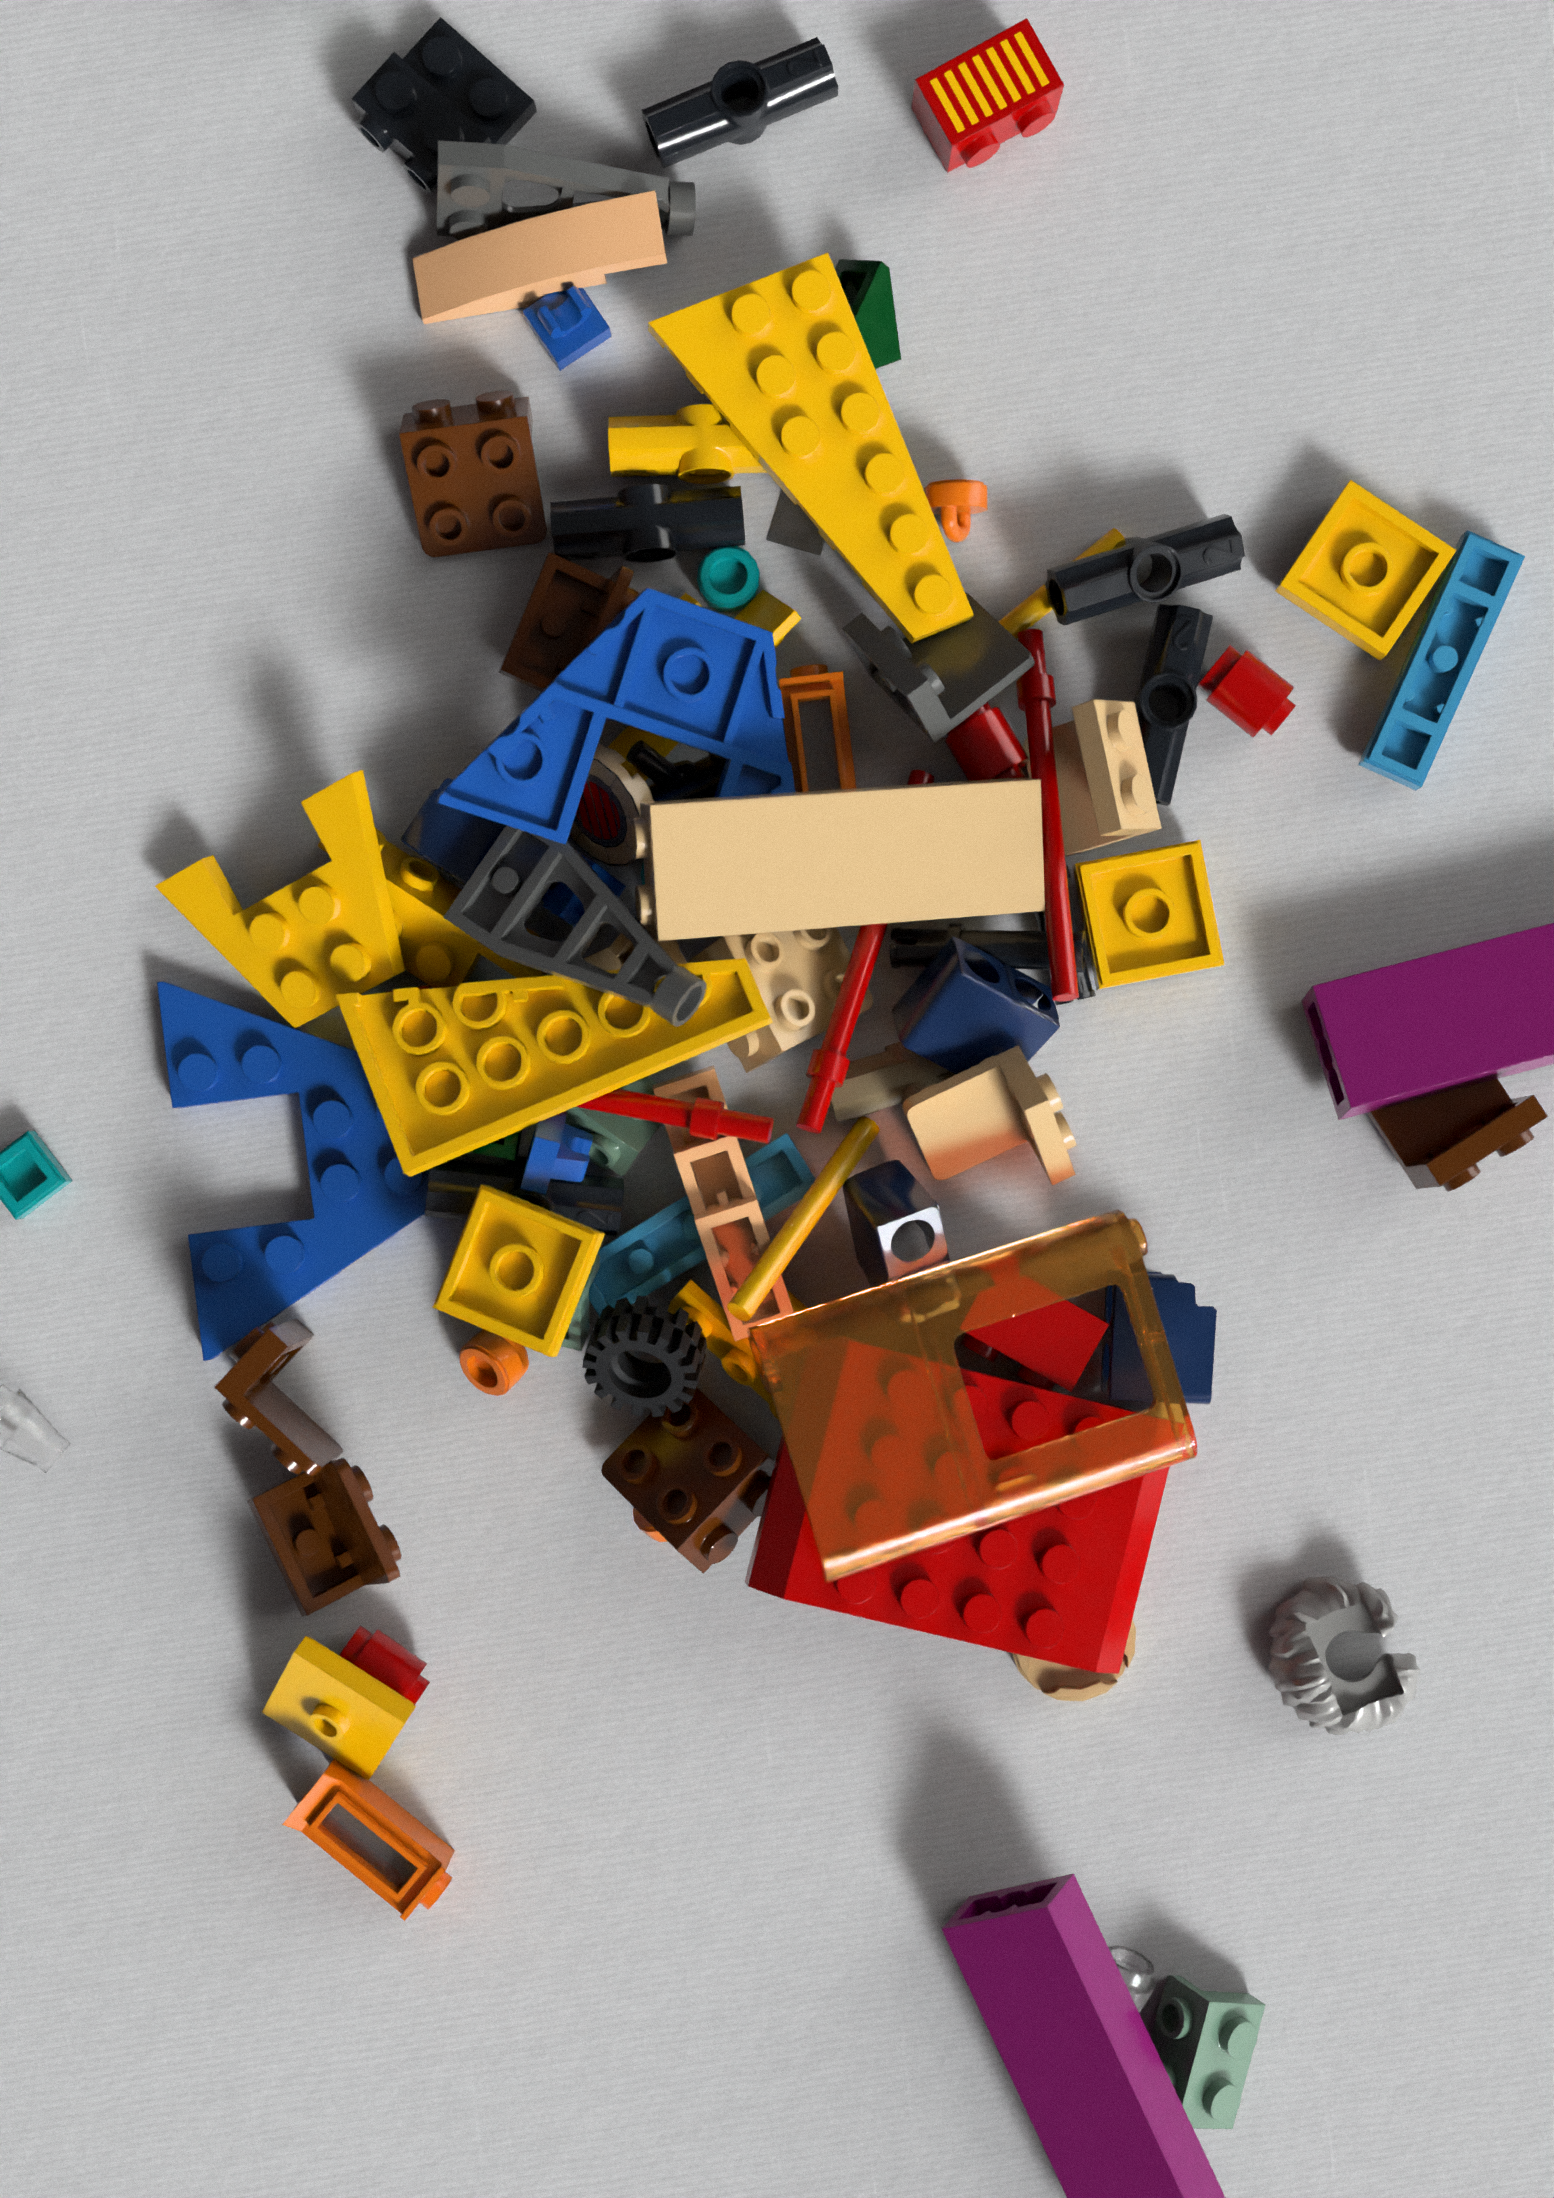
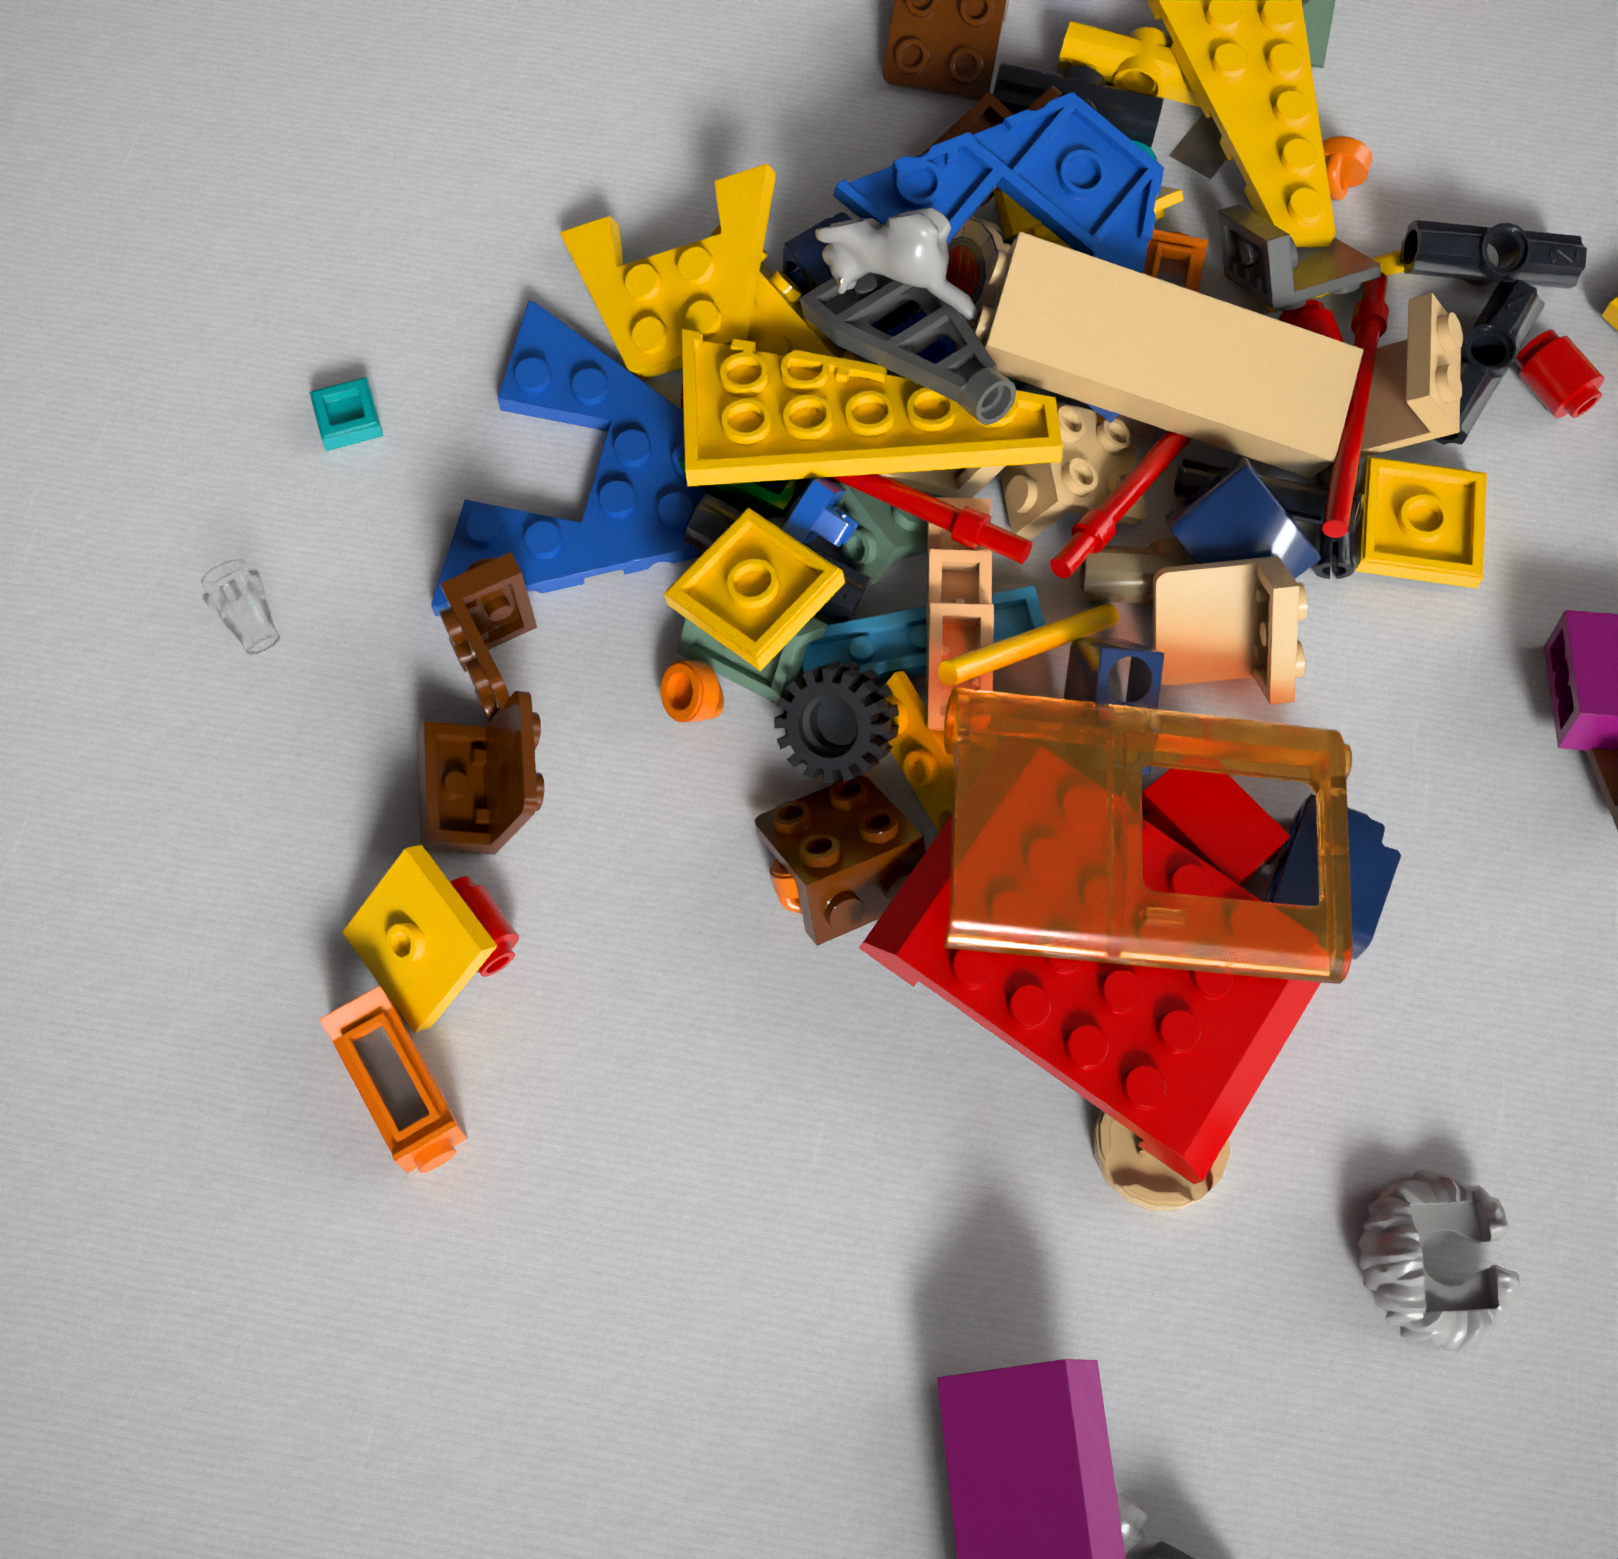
camera: 20 degrees right, 20 degrees down
(533, 858) = (905, 249): none -> light grey animal

